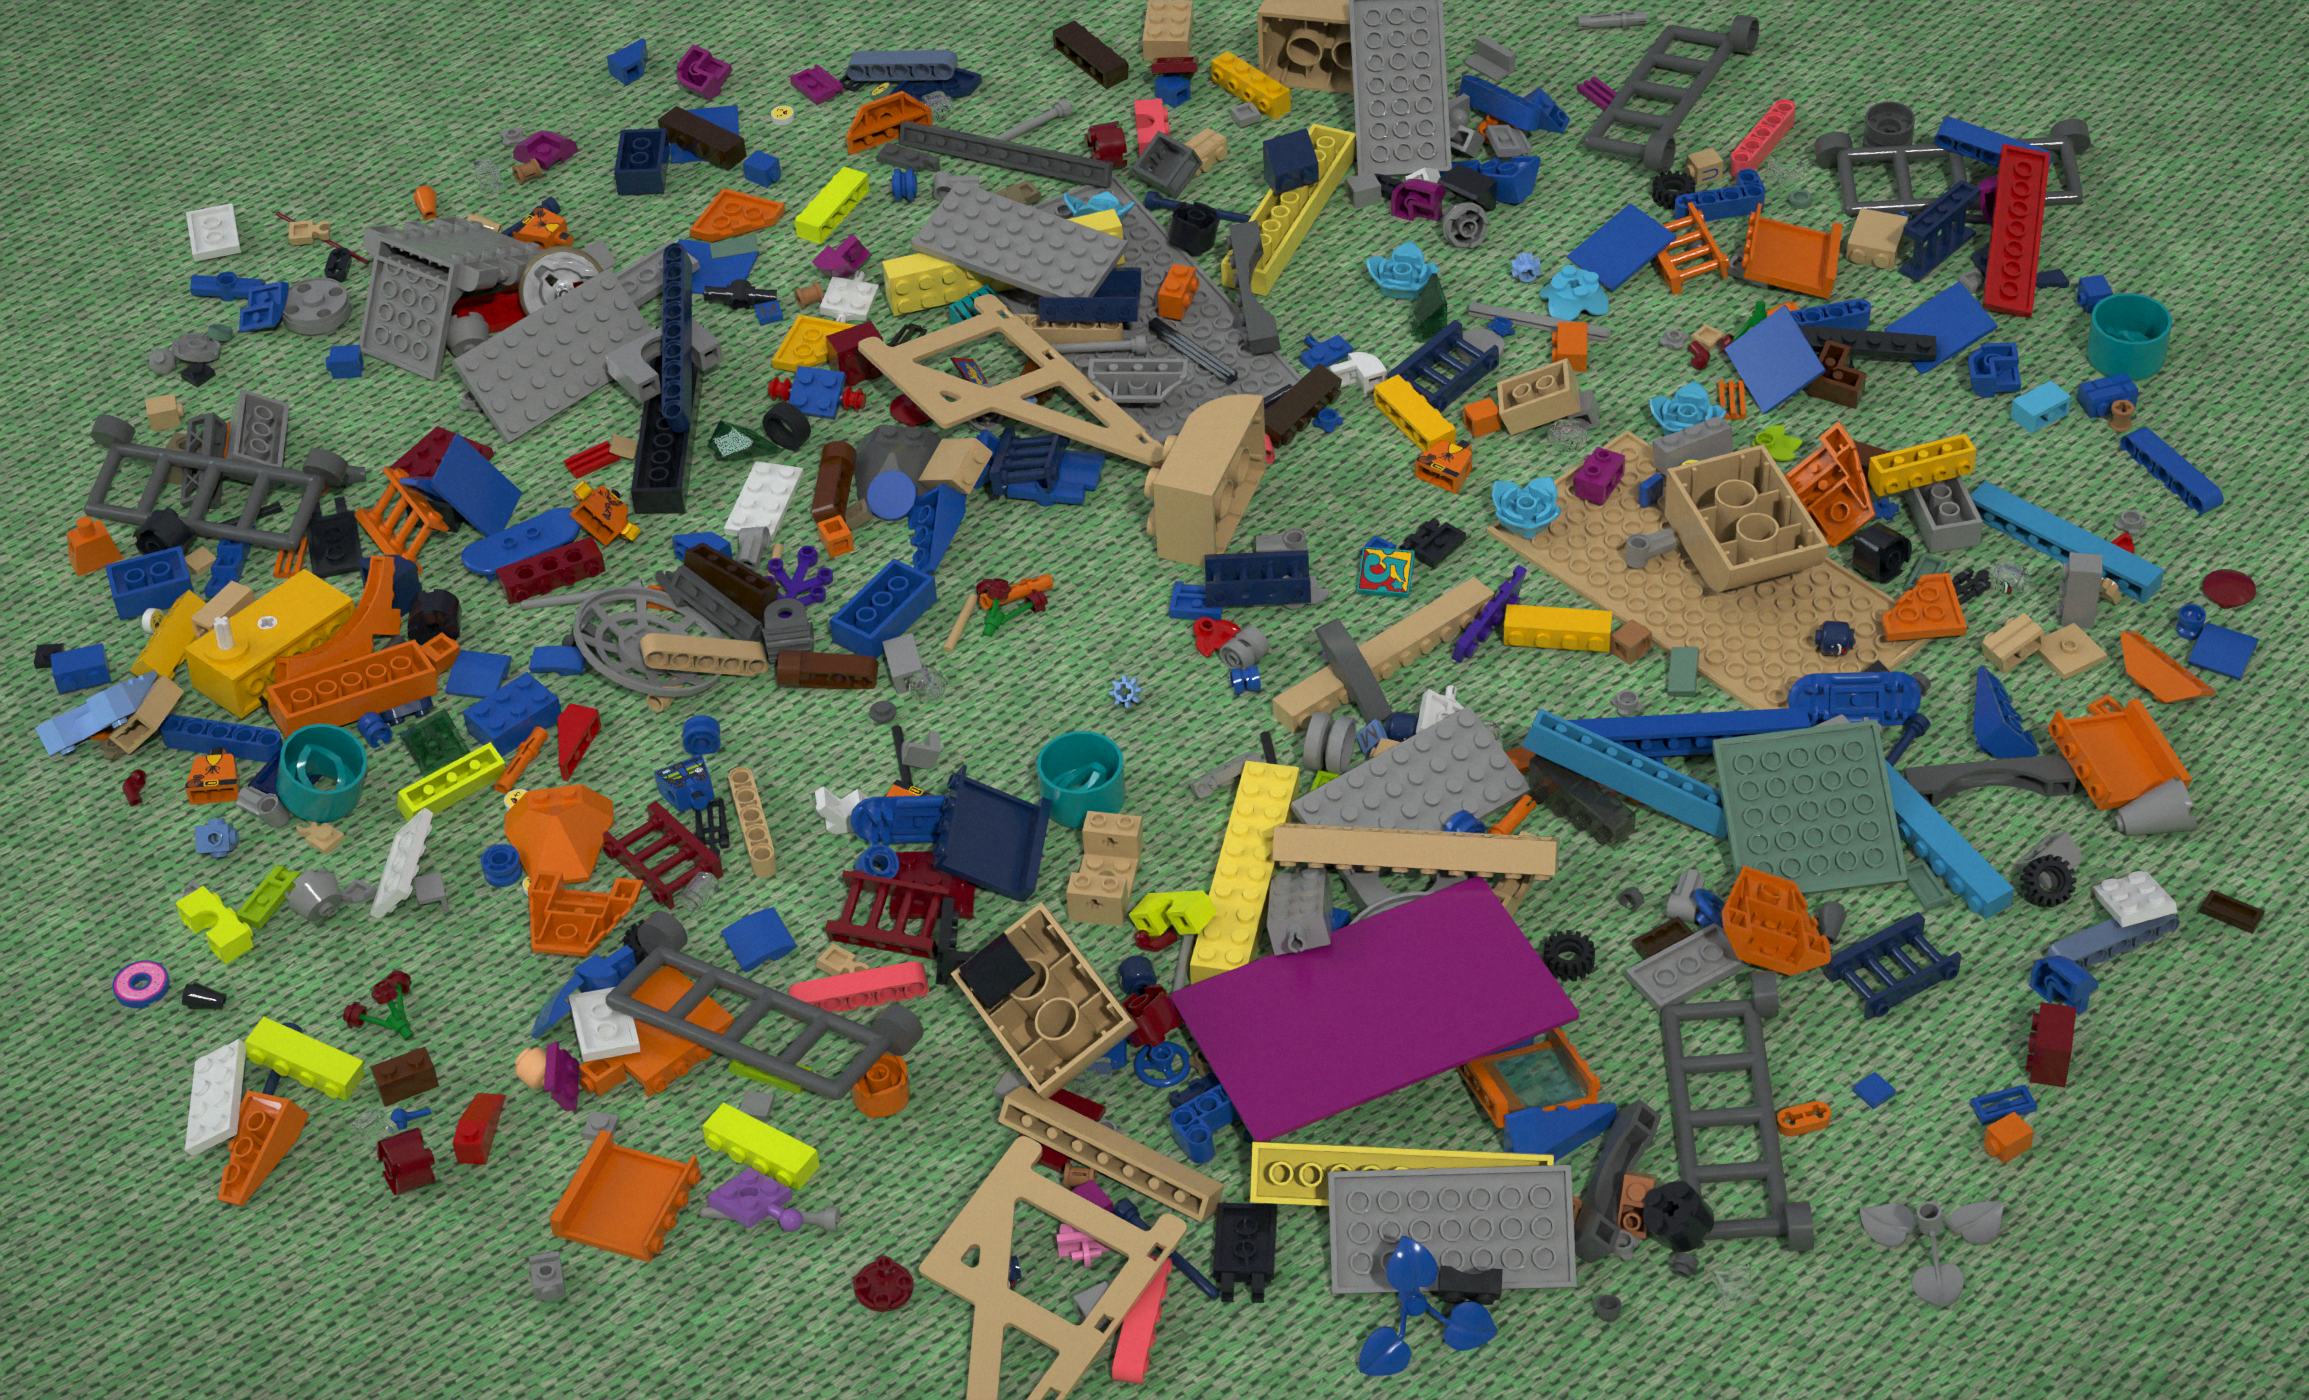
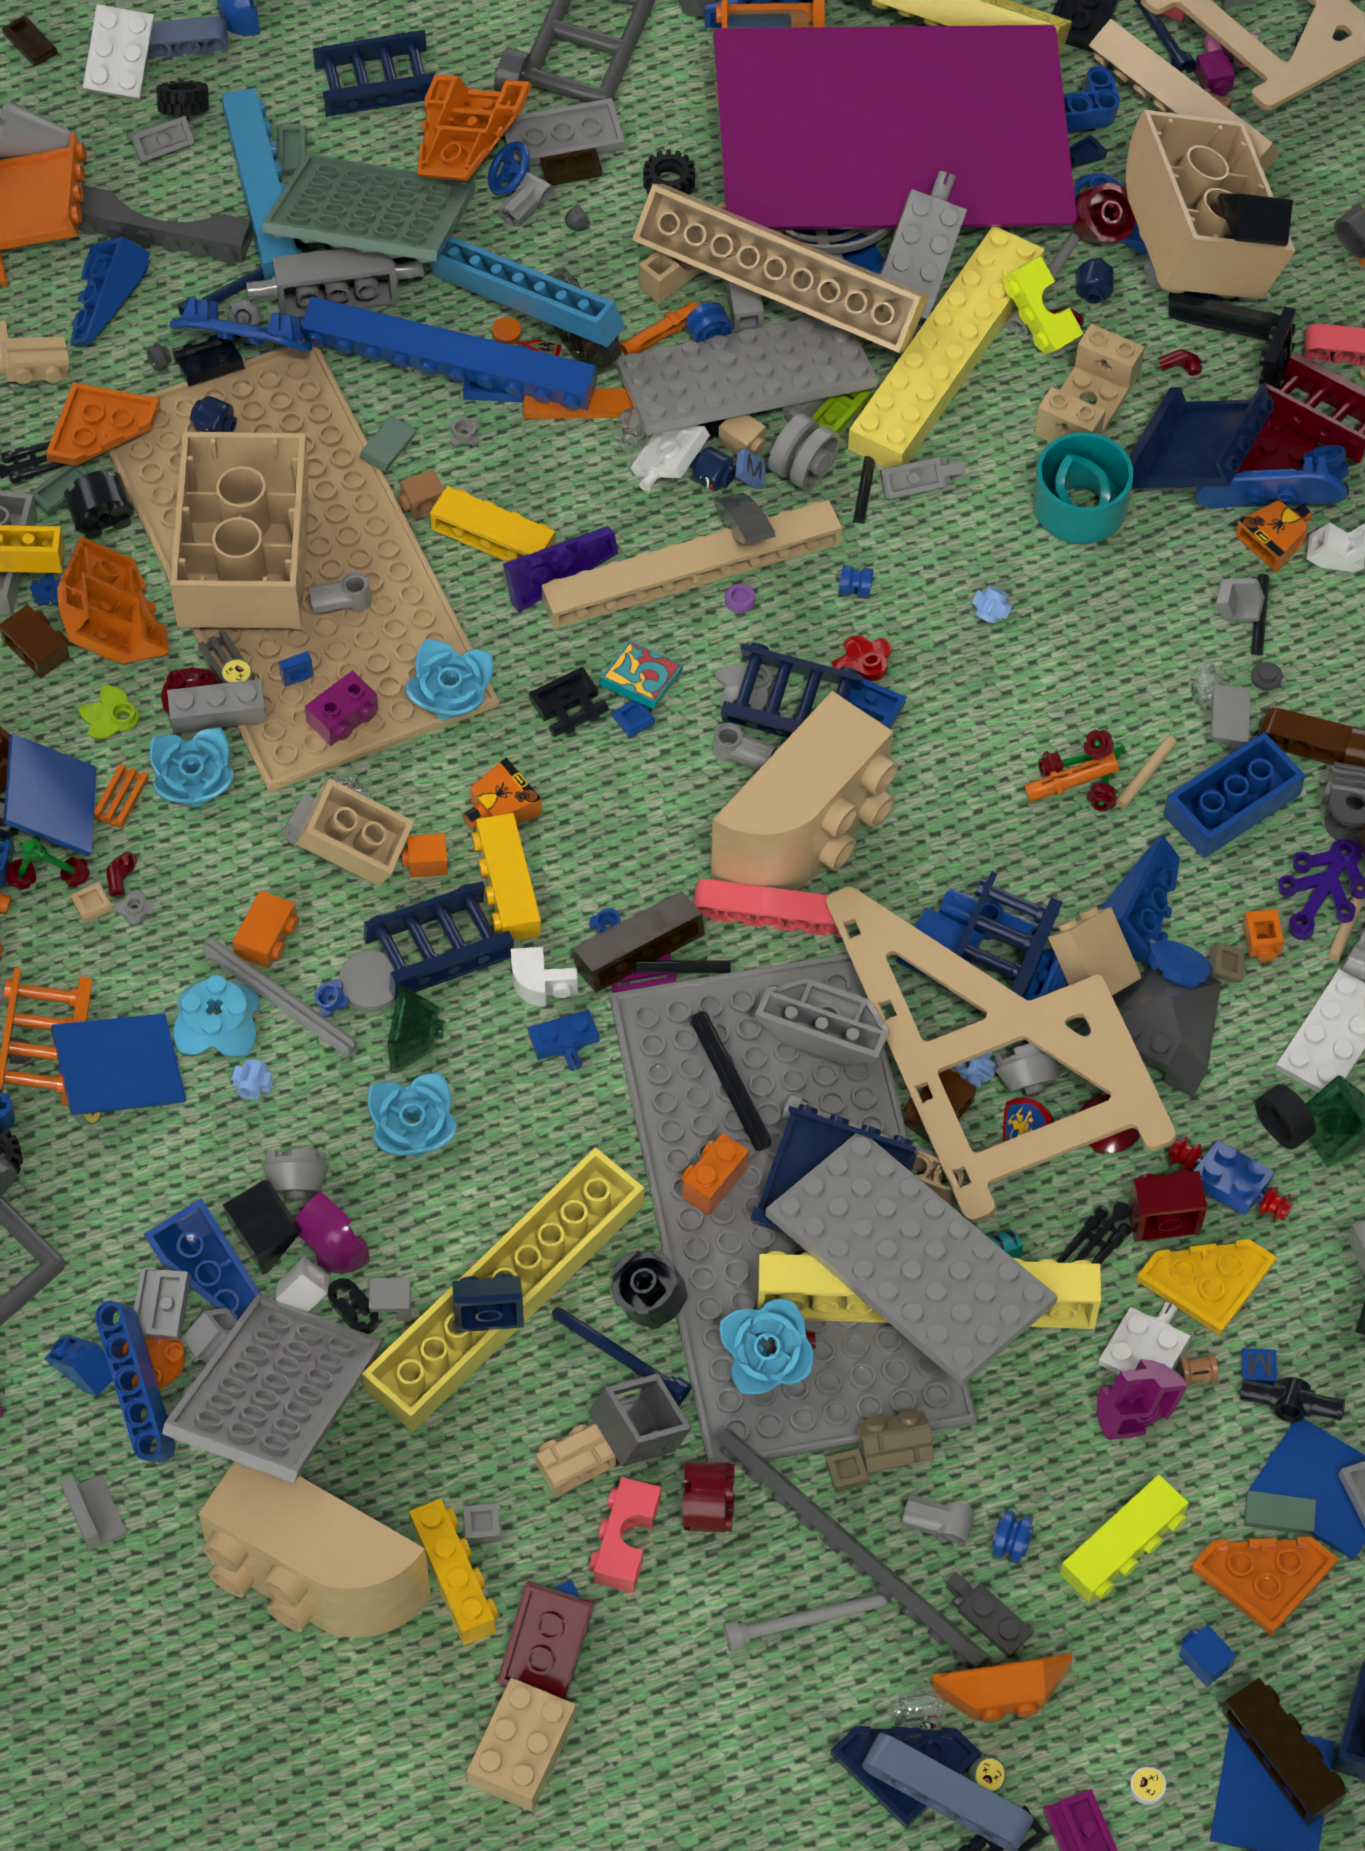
camera: 165 degrees left, 15 degrees up
(834, 480) = (1245, 1014): reddish brown beam -> none
(1090, 54) = (654, 1738): dark brown brick -> none
(1244, 649) = (846, 613): light grey wheel -> none
(1261, 325) = (608, 1166): dark grey arch -> none
(1831, 920) = (402, 137): dark grey cone -> none

